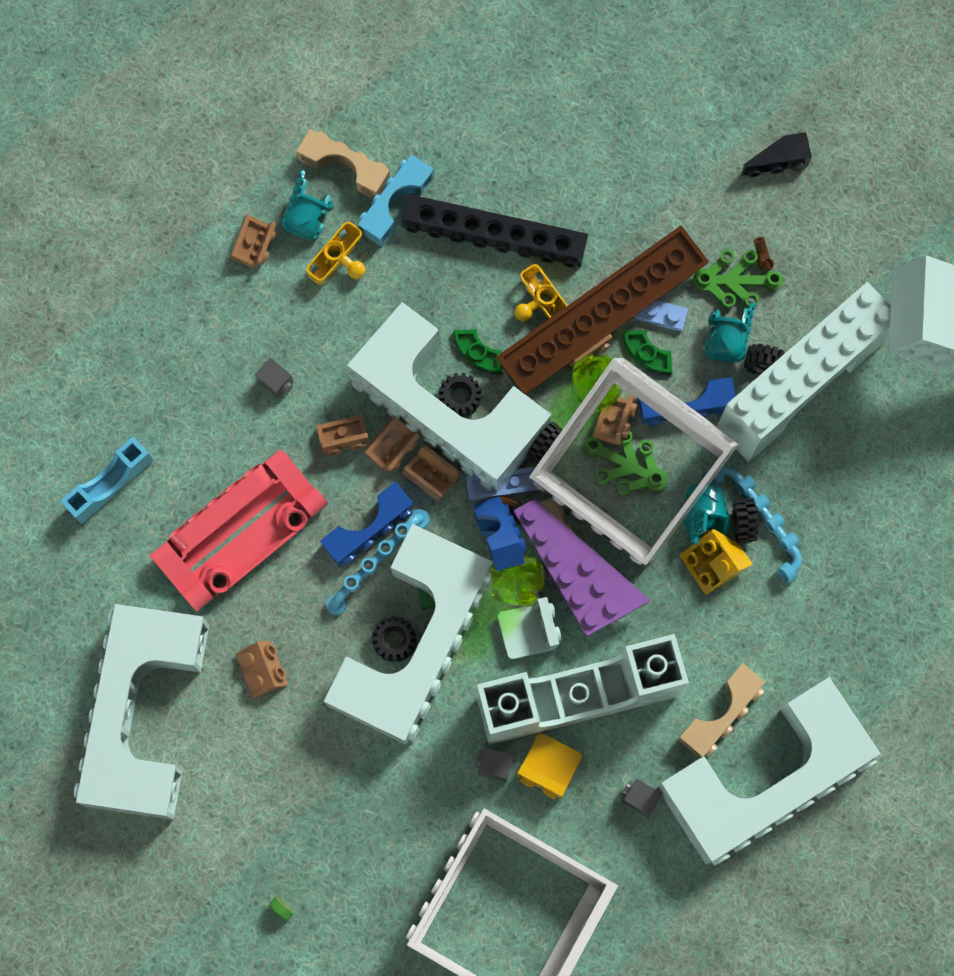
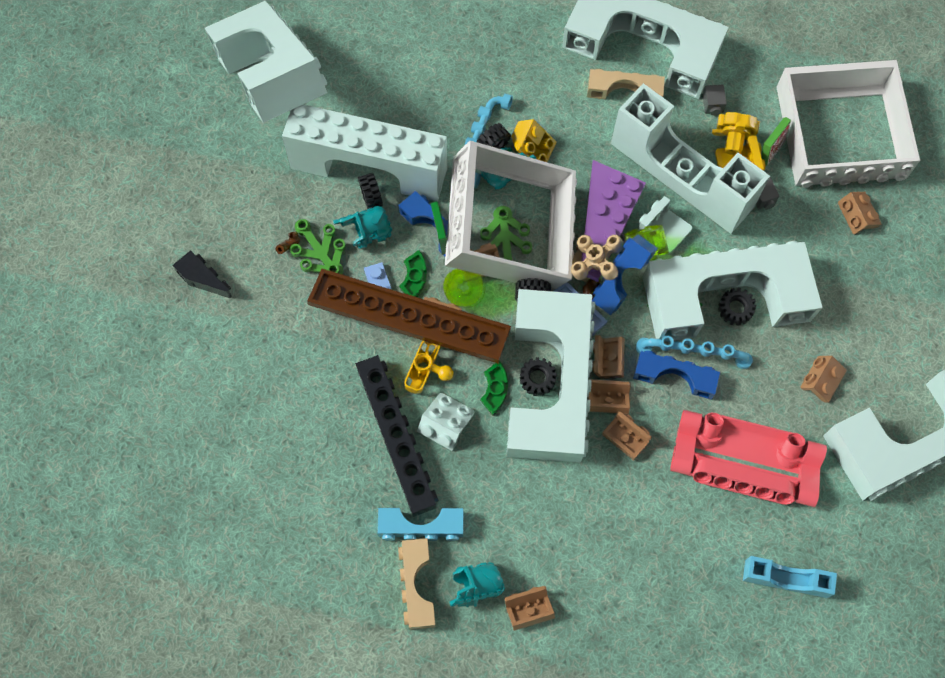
camera: 125 degrees left, 5 degrees down
(274, 378) = (622, 513): dark grey brick -> none
(328, 264) = (483, 540): yellow piece -> none
(404, 854) = (859, 212): none -> medium nougat bracket
(478, 285) = (445, 421): none -> light aqua bracket
(532, 513) = (597, 257): none -> tan gear
(543, 816) = (775, 140): none -> bright green tile
(583, 783) = (736, 129): none -> yellow piece
(677, 385) = (439, 226): none -> green tile

